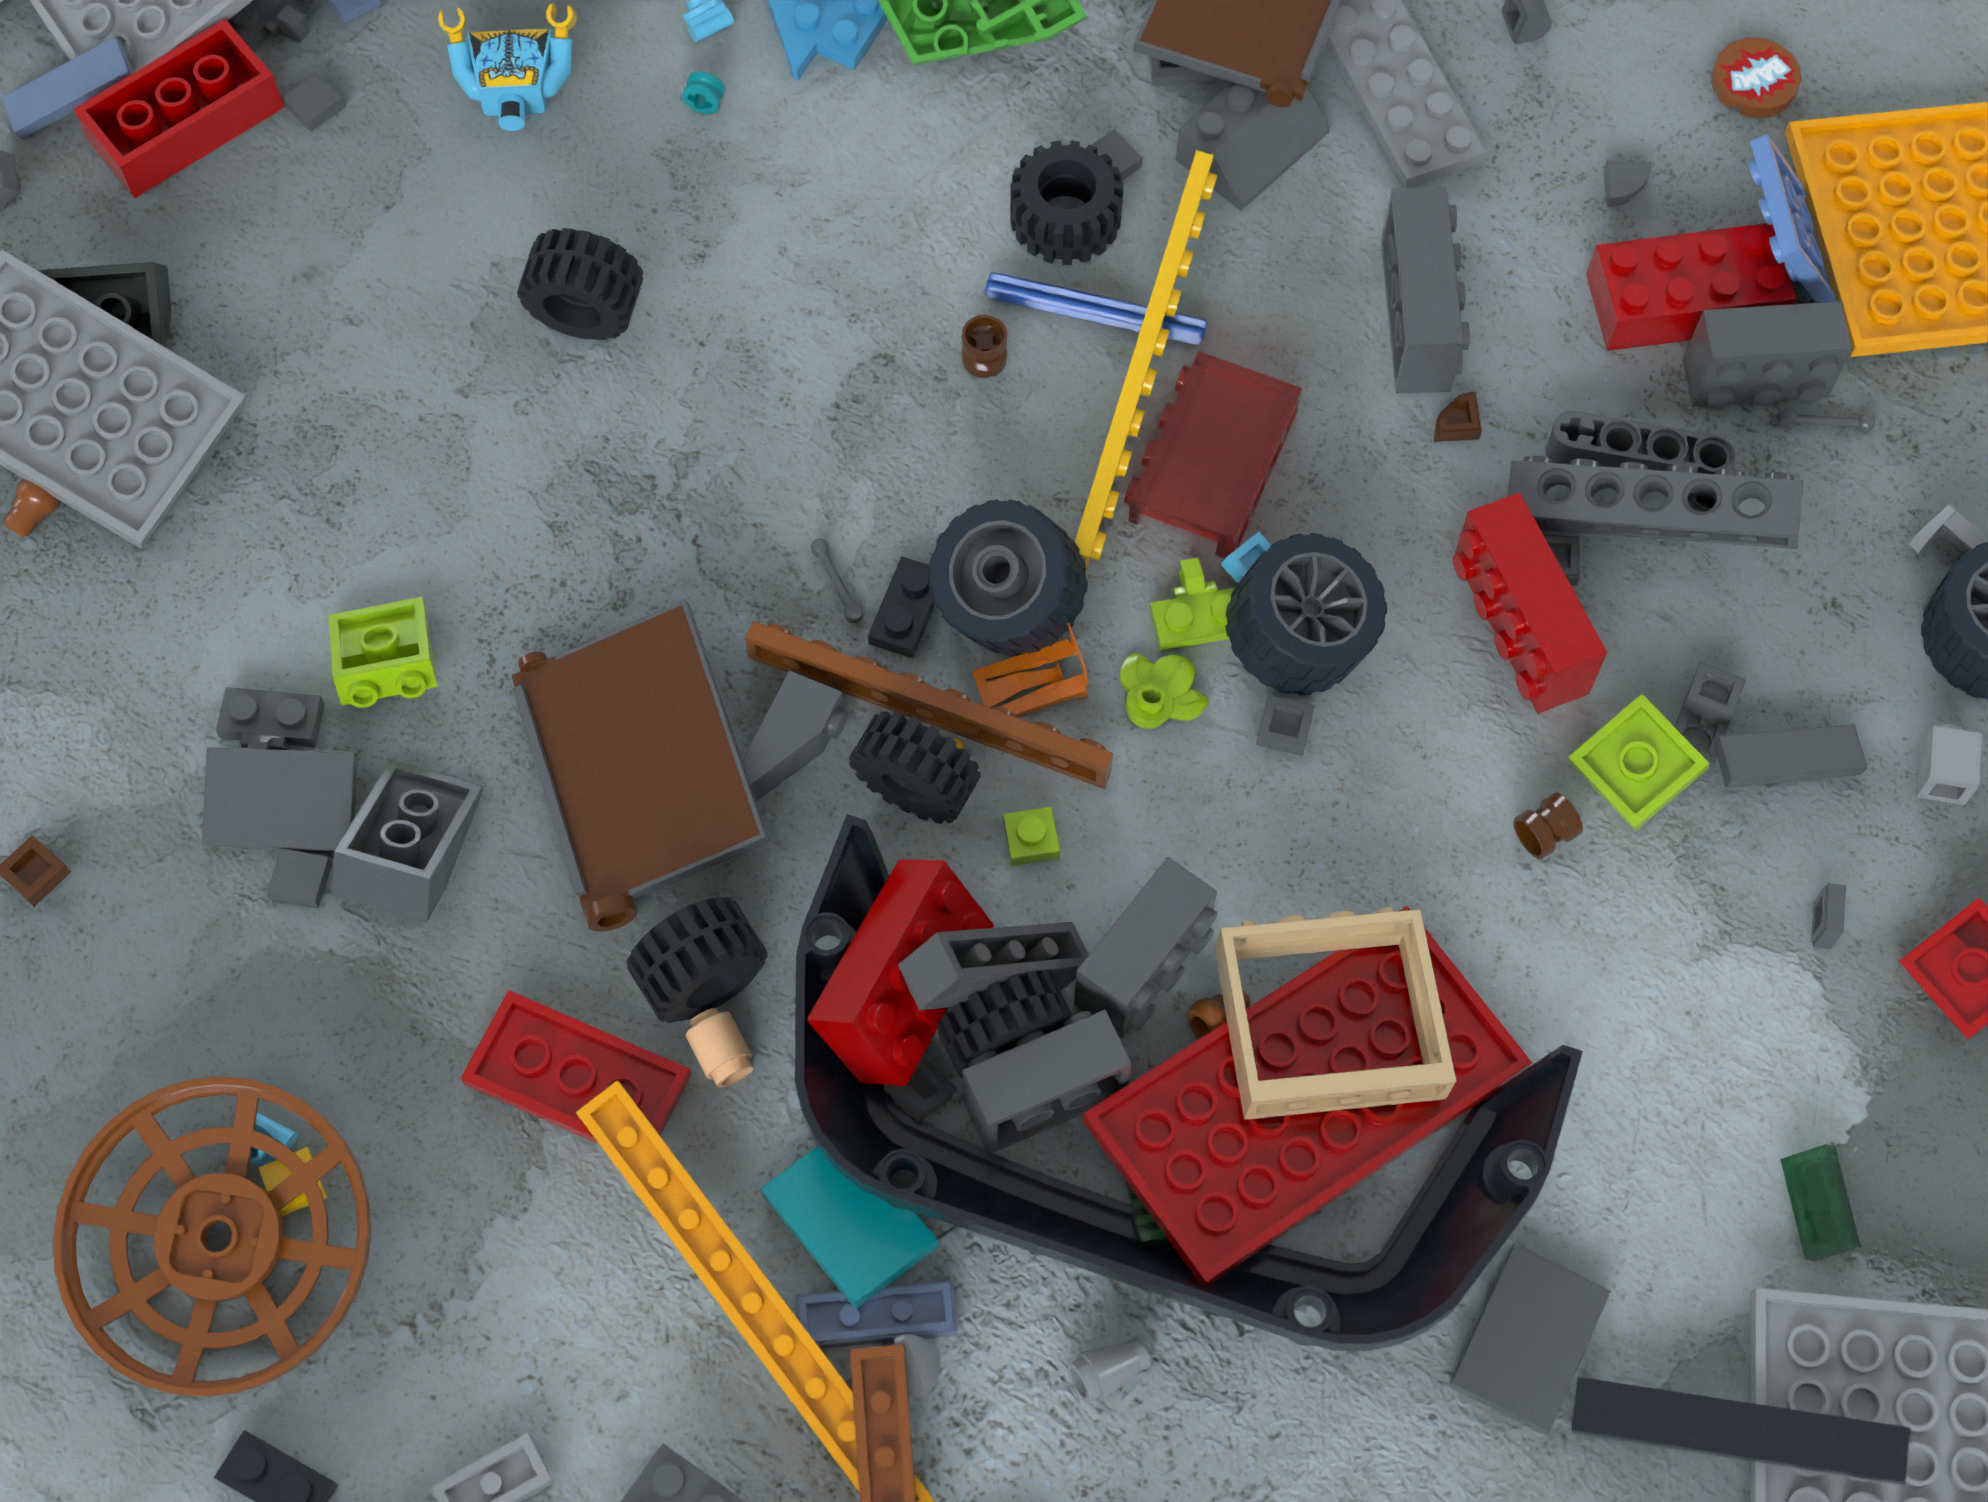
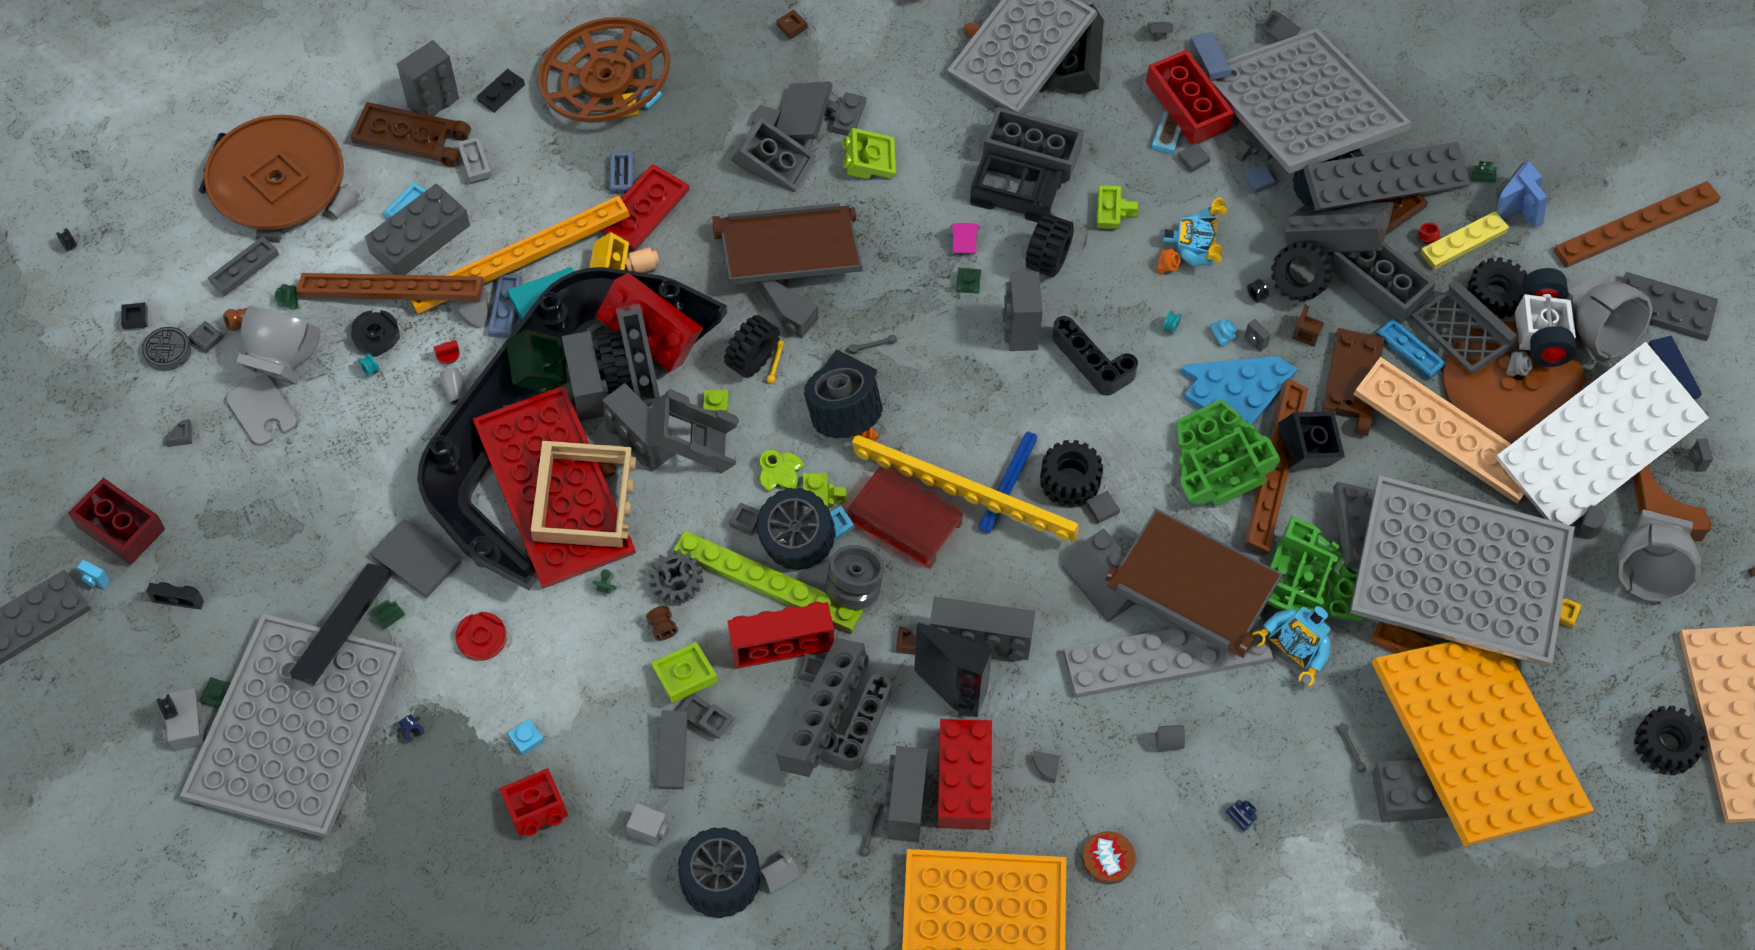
camera: 100 degrees right, 5 degrees down
(259, 152) = (1167, 134): none -> tile
(324, 355) = (1034, 141): none -> dark grey brick
(434, 315) = (1033, 207): none -> black piece
(454, 215) = (1113, 207): none -> lime hinge
(485, 1168) = (621, 187): none -> sand blue tile
(562, 449) = (964, 237): none -> dark pink tile
(563, 117) = (1168, 261): none -> orange plate
(659, 436) = (968, 280): none -> clear green plate
(696, 959) = (678, 248): black tyre -> none
(741, 1108) = (609, 252): none -> yellow brick
(750, 298) = (1022, 311): none -> dark grey brick
(763, 246) = (1069, 335): none -> black beam
(942, 709) = (788, 372): dark orange plate -> none
(984, 346) = (990, 423): reddish brown wheel -> none
(1024, 1405) = (447, 352): none -> red plate
(1052, 694) = (796, 404): orange piece -> none
(1071, 1176) = (529, 355): none -> clear green piece
(1161, 866) = (714, 426): none -> dark grey piece
(1376, 501) = (854, 577): none -> dark grey wheel
(1400, 672) = (763, 579): none -> lime plate
(1465, 814) = (679, 586): none -> dark grey gear
(1488, 947) = (604, 585): none -> clear green plate
(1547, 281) = (953, 668): none -> black slope
(1661, 1161) = (481, 636): none -> red tile
(1668, 1358) = (388, 613): none -> clear green plate
(1792, 223) = (985, 821): medium blue plate -> none
(1820, 1202) = (431, 695): clear green plate -> none
(1828, 916) = (580, 741): dark grey tile -> none
(1843, 1023) = (525, 737): none -> medium azure plate
(1897, 1242) = (409, 723): none -> dark blue plate

